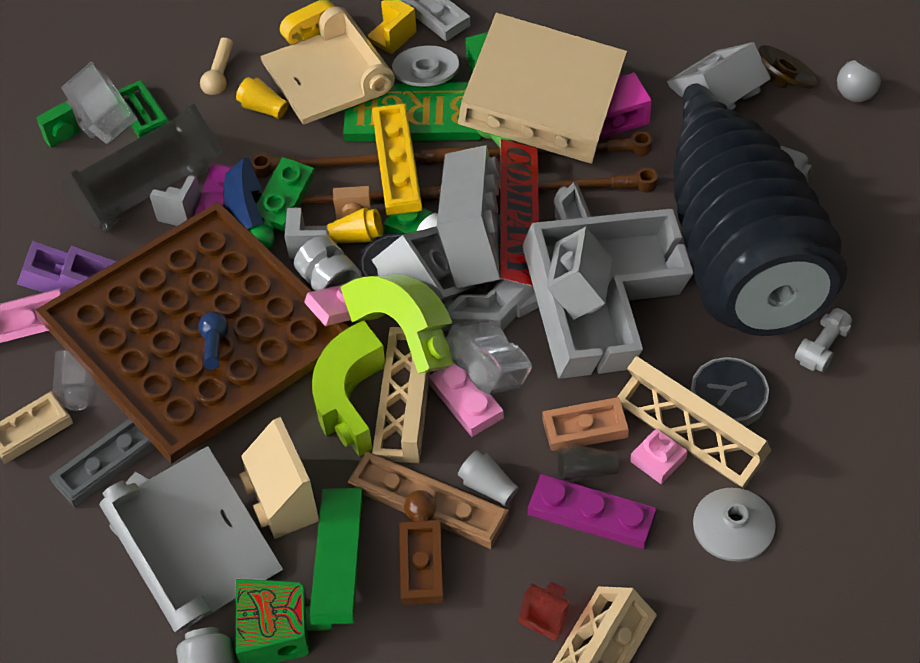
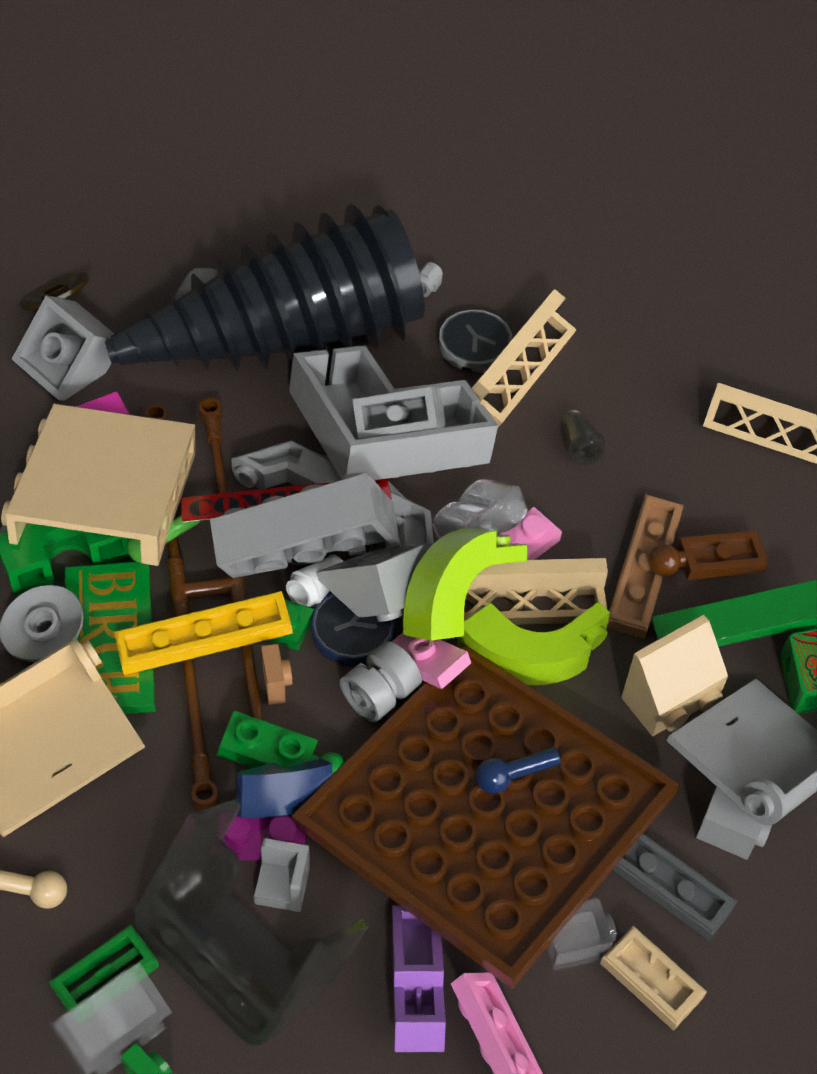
camera: 105 degrees left, 0 degrees up
(258, 97) = (91, 811): yellow cone -> none
(297, 233) = (325, 718): light grey panel -> none
(357, 227) = (309, 665): yellow cone -> none
(485, 476) = (614, 514): light grey cone -> none
(544, 609) = (742, 455): clear red tile -> none
(585, 424) = (537, 441): nougat plate -> none
(592, 511) = (626, 436): magenta plate -> none
(658, 456) = (556, 388): bright pink tile -> none
(730, 538) = (610, 340): light grey dish -> none
(858, 81) = (76, 238): light grey piece -> none

